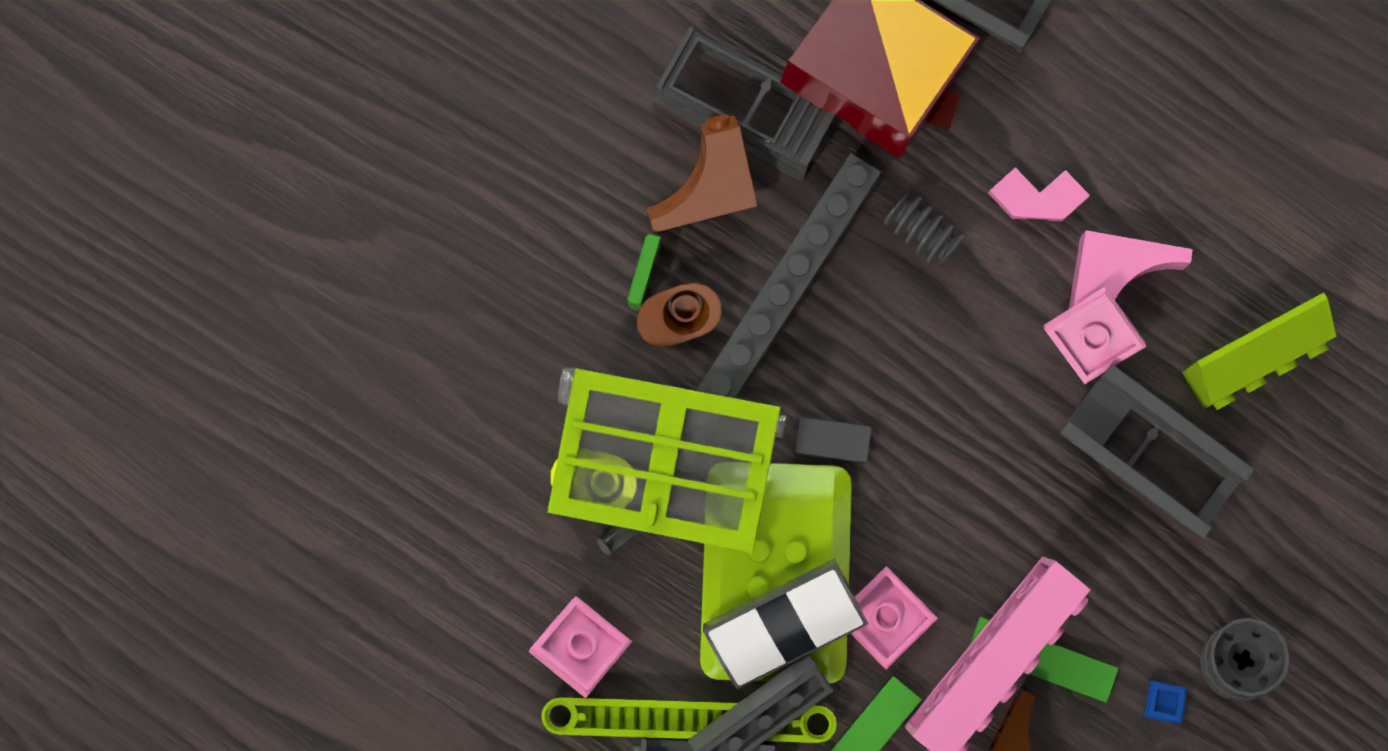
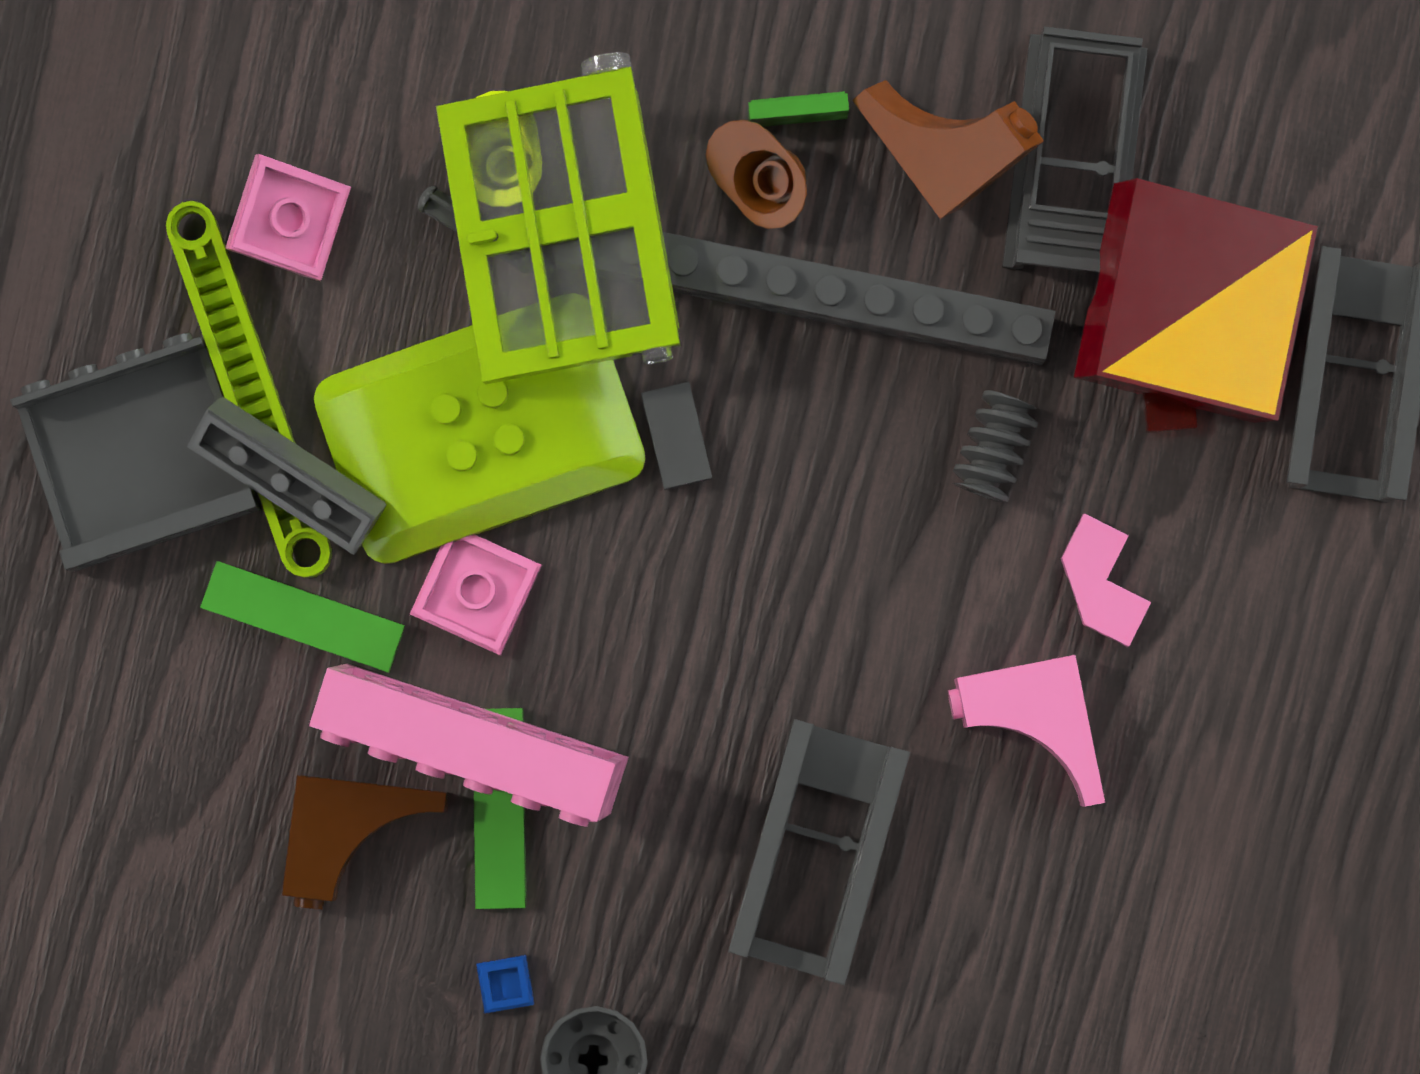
camera: 65 degrees right, 5 degrees up
(784, 624) = (412, 460): slope -> none
(1094, 335) = (940, 717): bright pink tile -> none
(1261, 353) = (1004, 943): lime slope -> none

